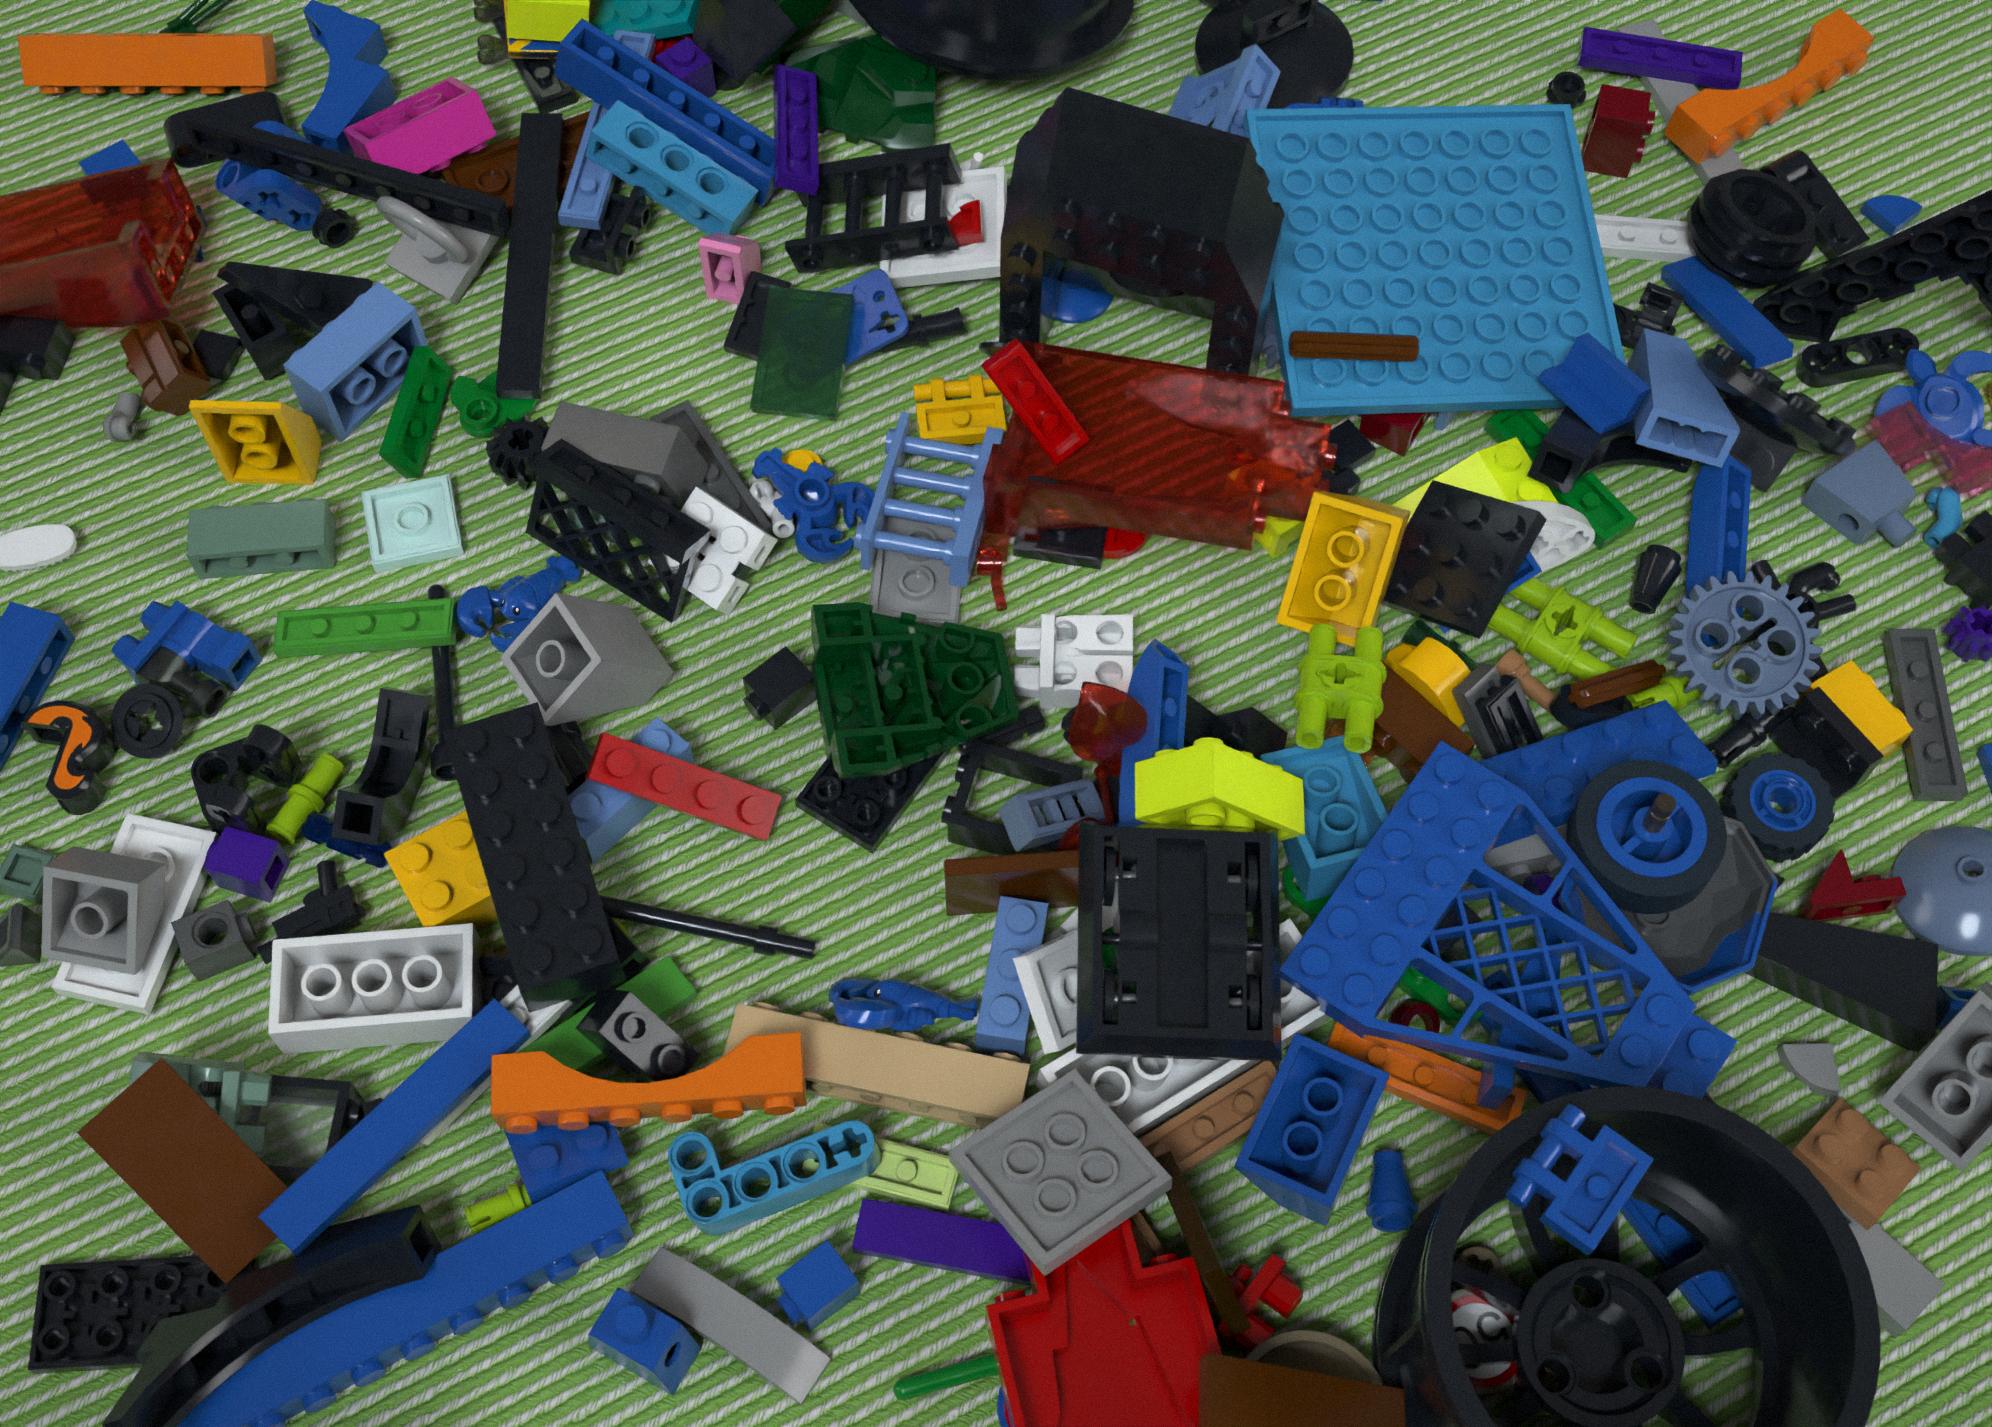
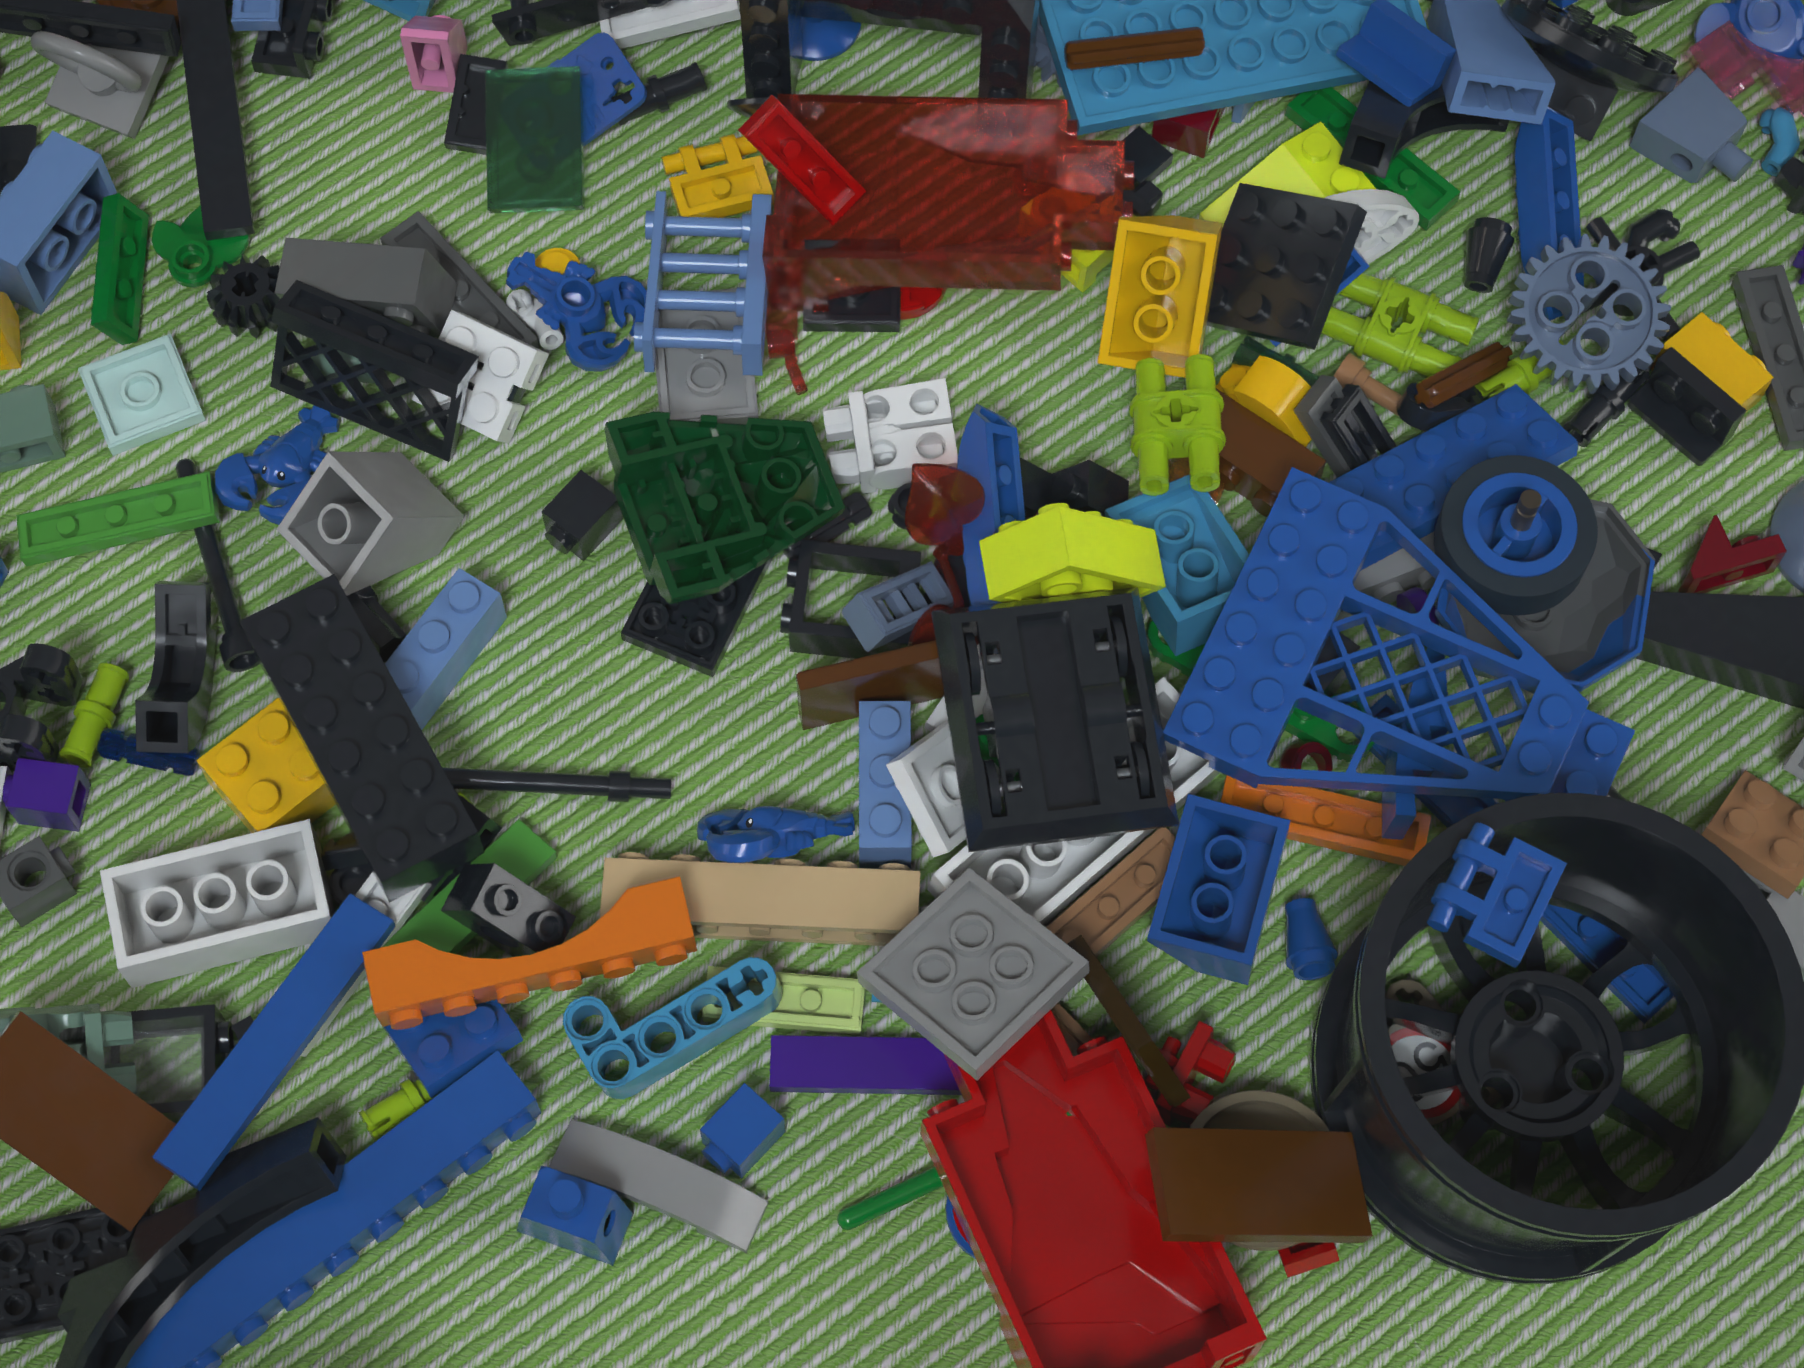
camera: 10 degrees left, 5 degrees up
(326, 911) = (142, 834): black piece -> none
(683, 787) = (501, 639): red plate -> none
(1793, 787) = (1660, 457): black wheel -> none
(1812, 1065) = (1714, 742): light grey tile -> none

